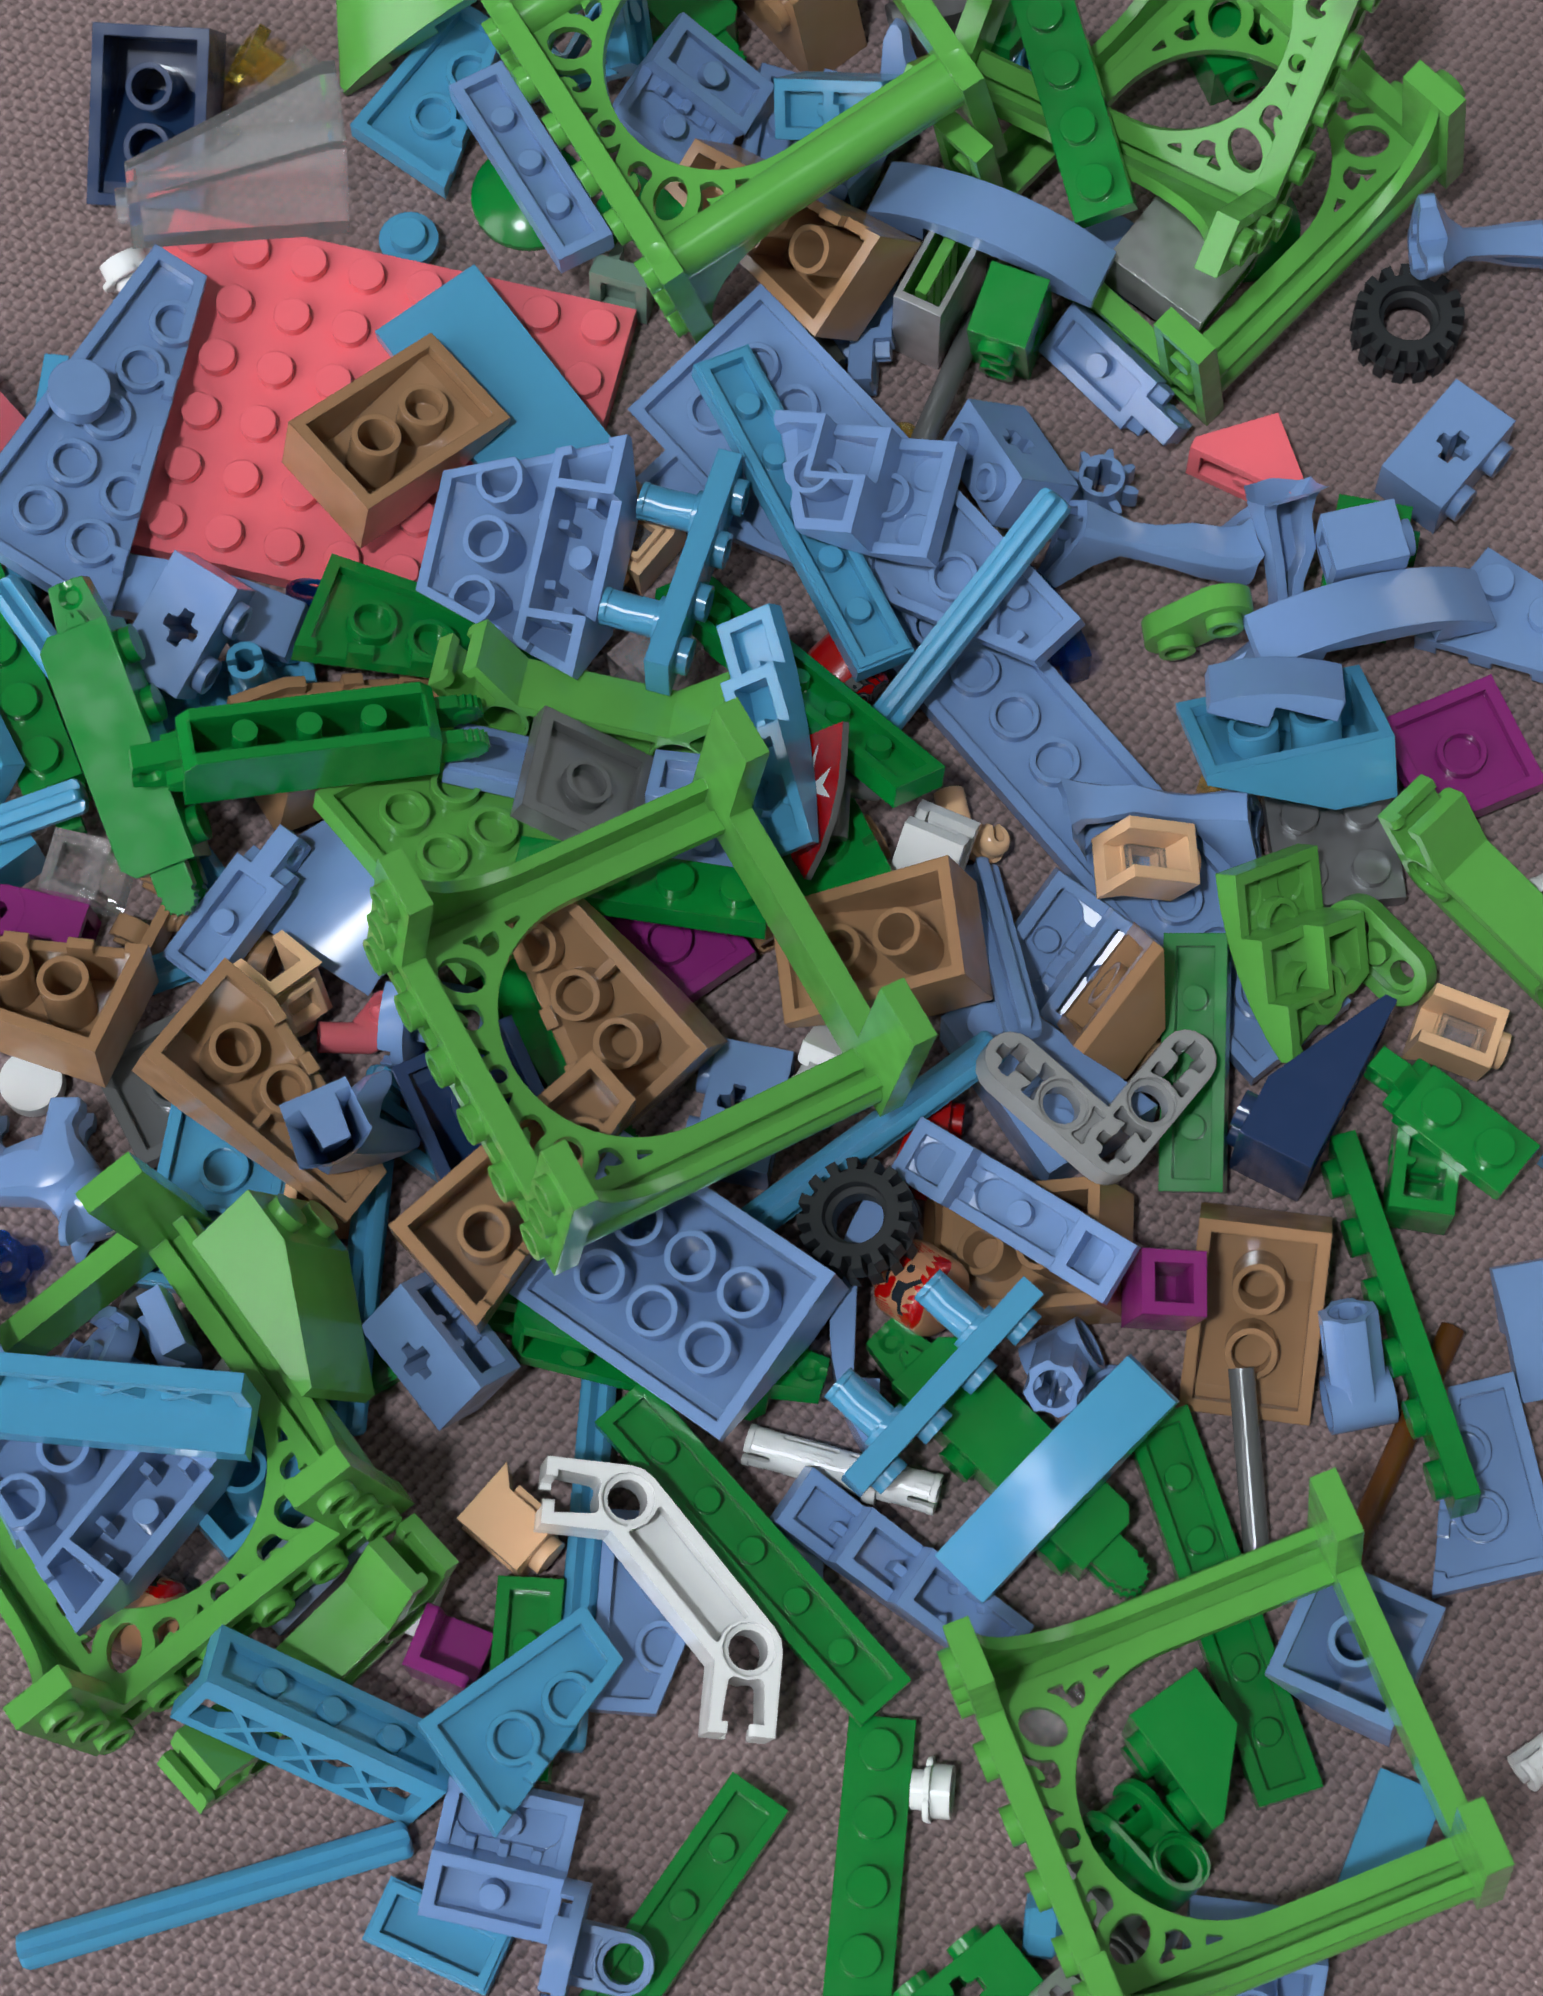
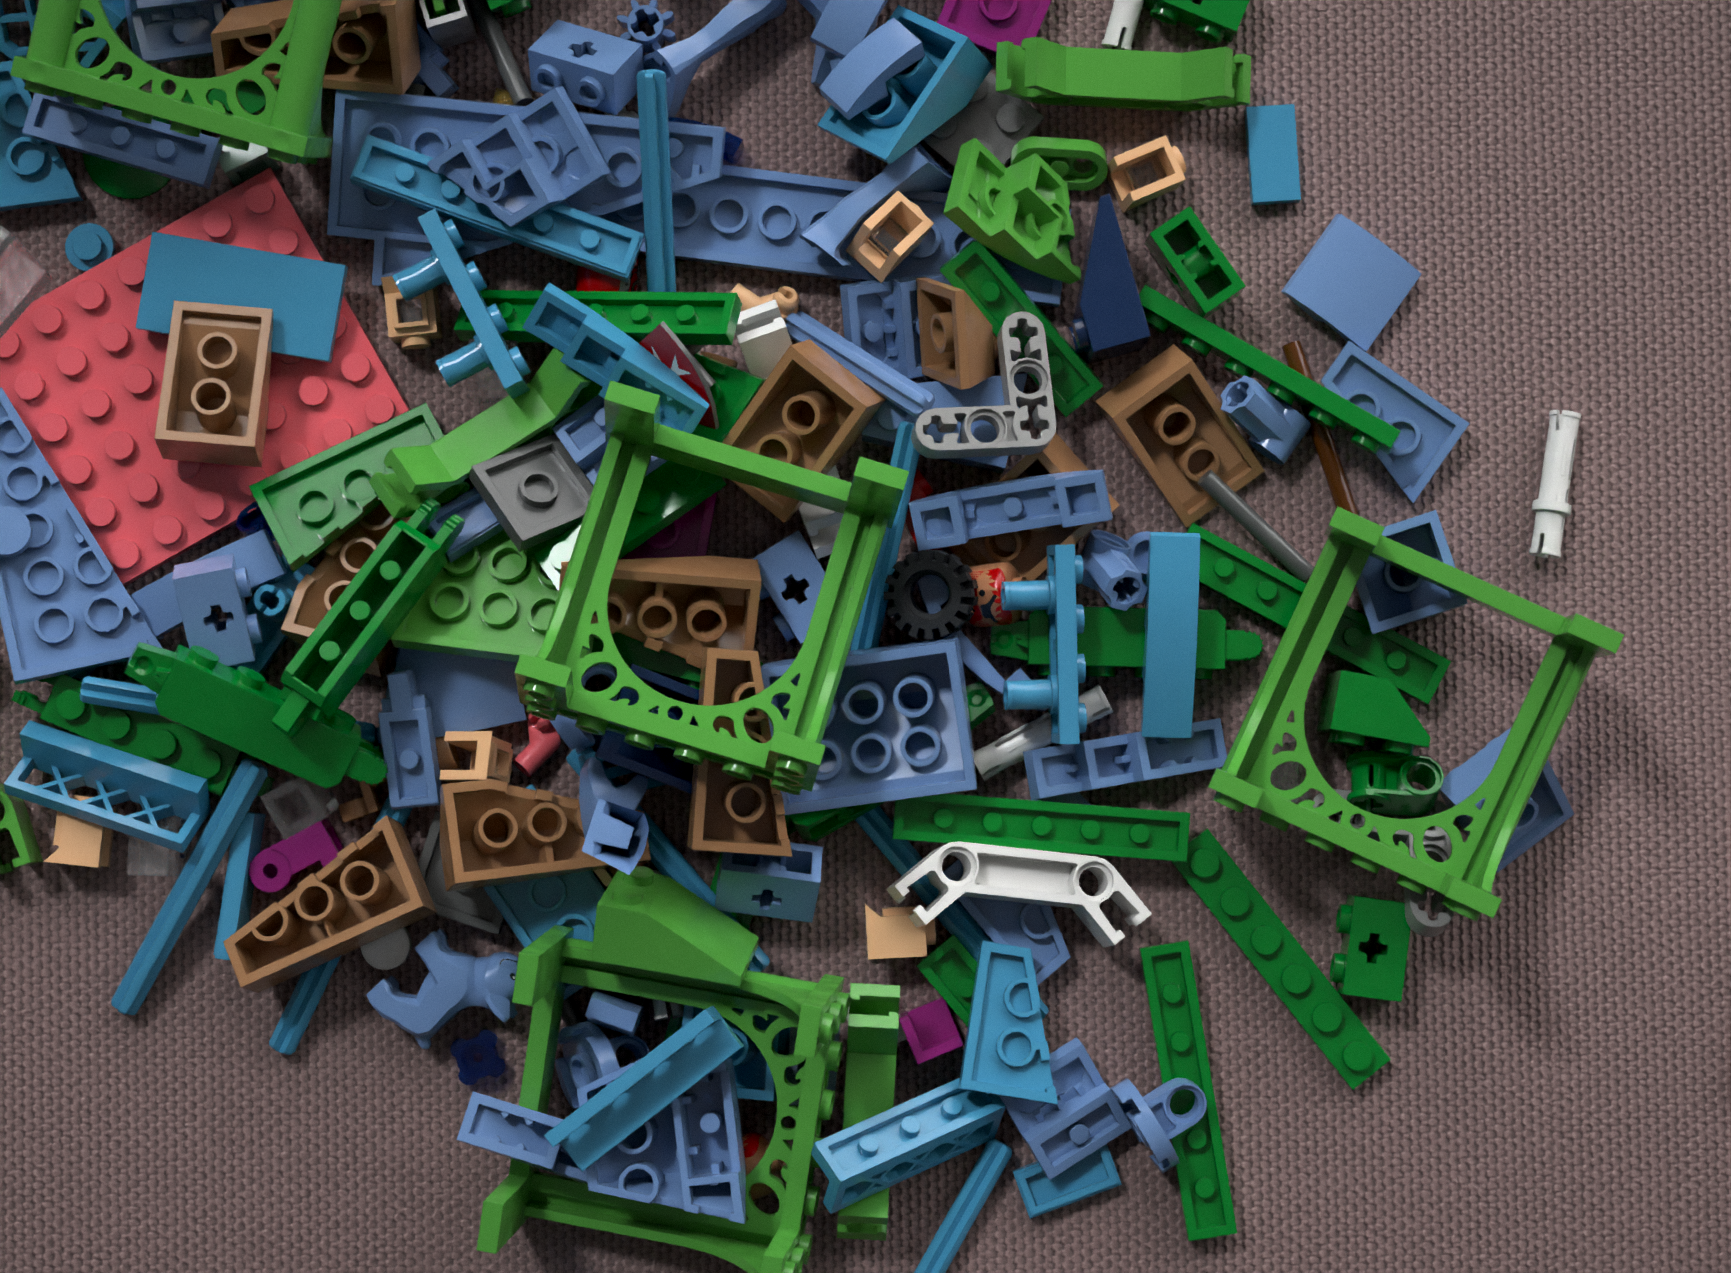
camera: 50 degrees left, 15 degrees up
(536, 546) = (367, 376): medium blue wedge -> none
(933, 1790) = (1250, 856): white plate -> none
(1038, 1931) = (1375, 883): dark azure tile -> none
(1164, 1290) = (1132, 475): magenta brick -> none
(1196, 619) = (789, 49): bright green plate -> none
(1391, 1825) = (1506, 657): dark azure tile -> none
(1451, 1122) = (1199, 234): green hinge -> none

